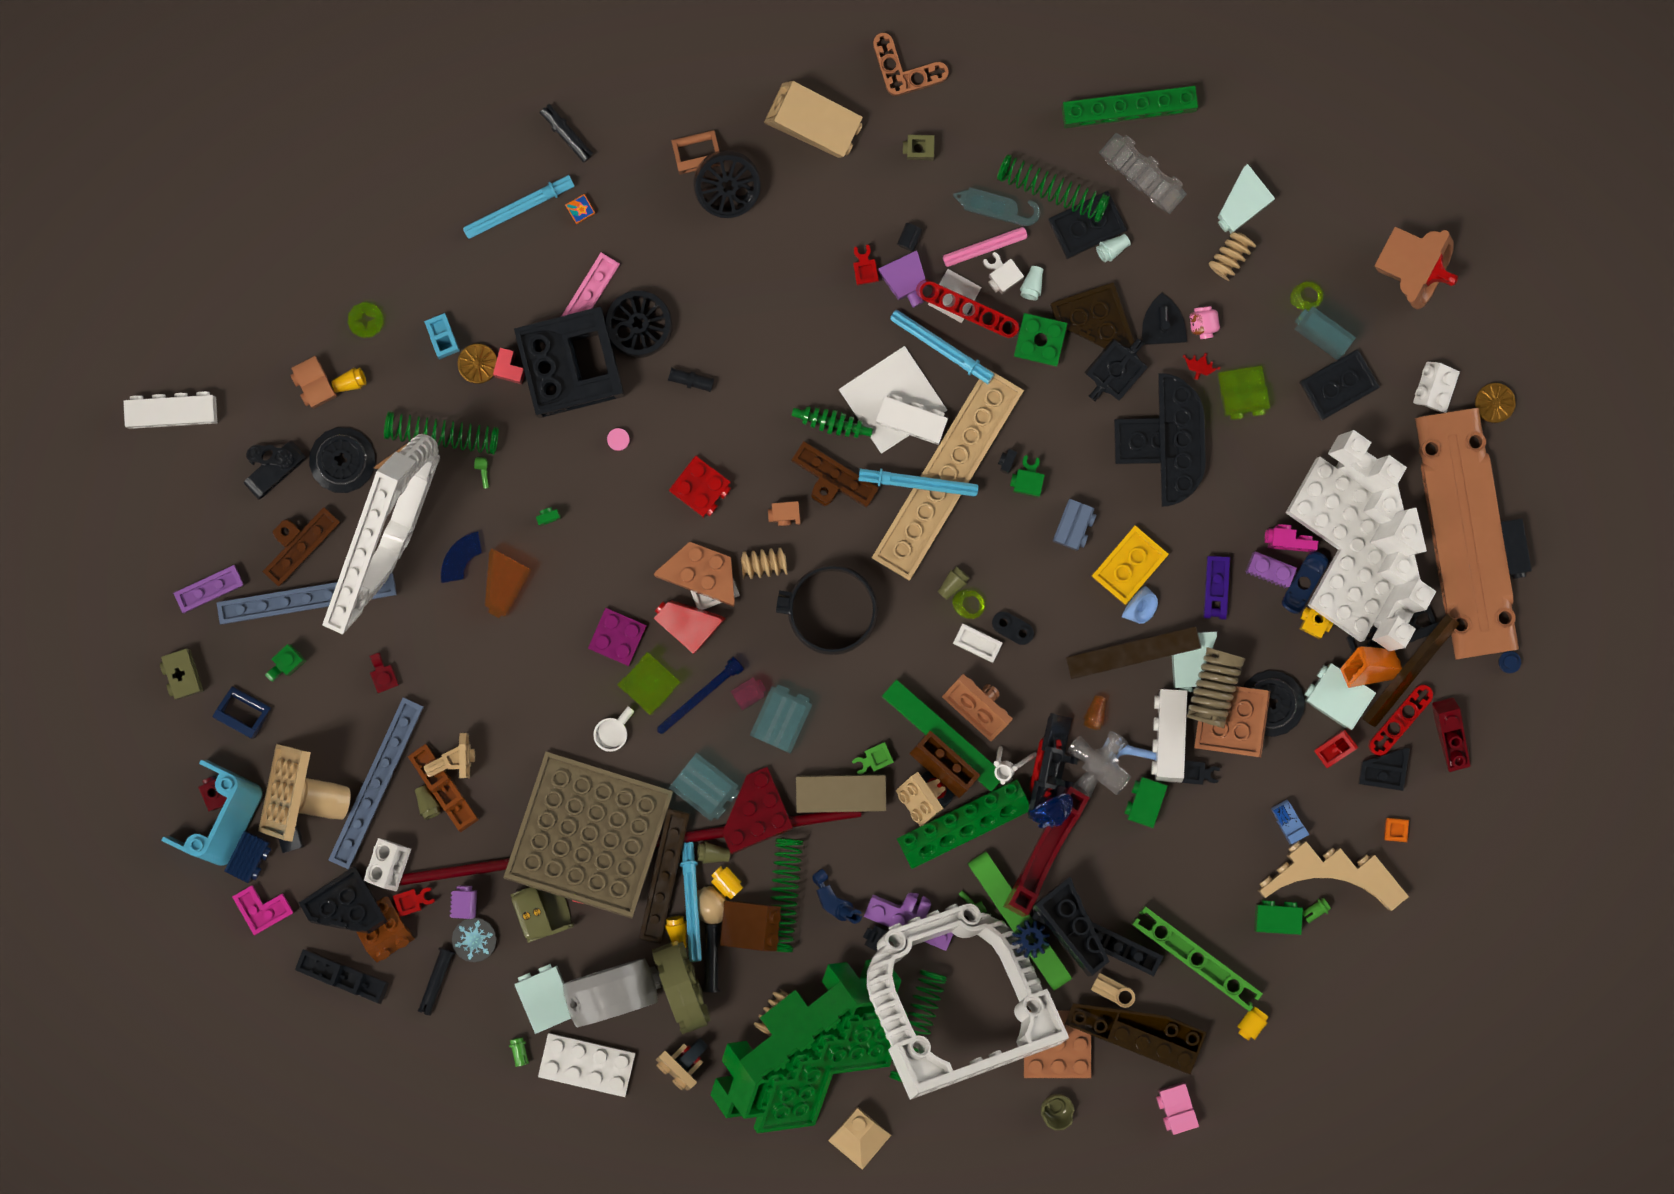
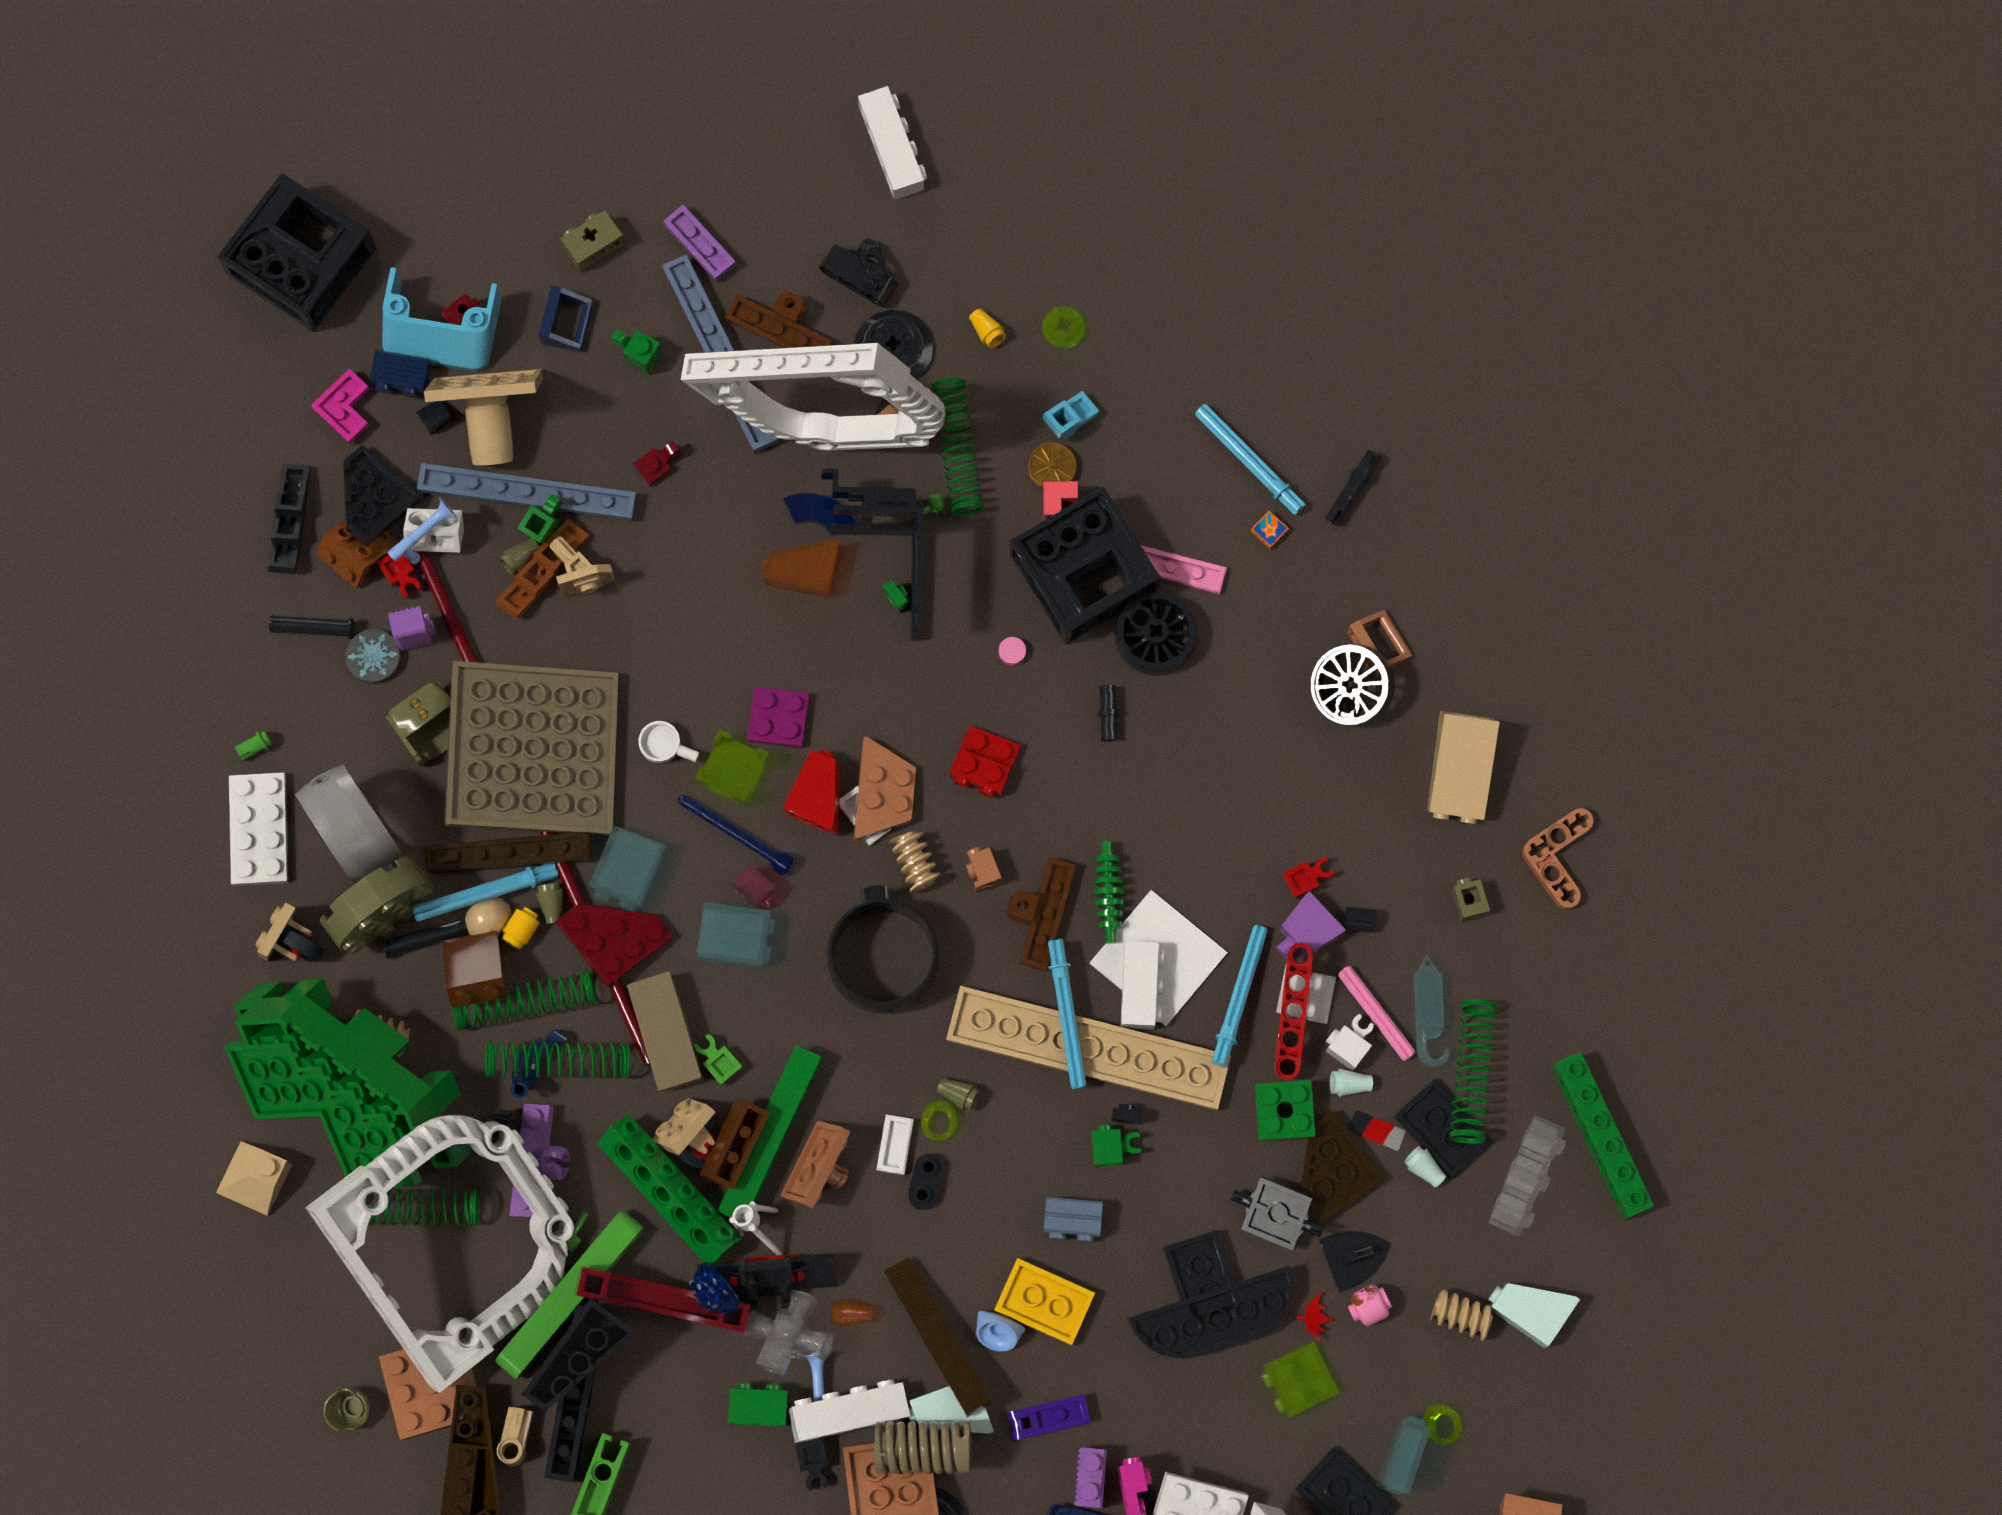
camera: 70 degrees right, 10 degrees down
(138, 910) = (284, 268): none -> black piece
(313, 382) = (972, 289): nougat brick -> none
(396, 889) = (404, 547): none -> light blue piece
(405, 778) = (540, 522): none -> green brick
(477, 497) = (886, 502): none -> black piece
(543, 998) = (322, 749): light aqua brick -> none
(676, 929) = (448, 884): yellow cone -> none
(847, 828) = (491, 1055): none -> green piece
(1024, 944) = (556, 1317): dark blue gear -> none
(1073, 274) = (1377, 1130): none -> sticker

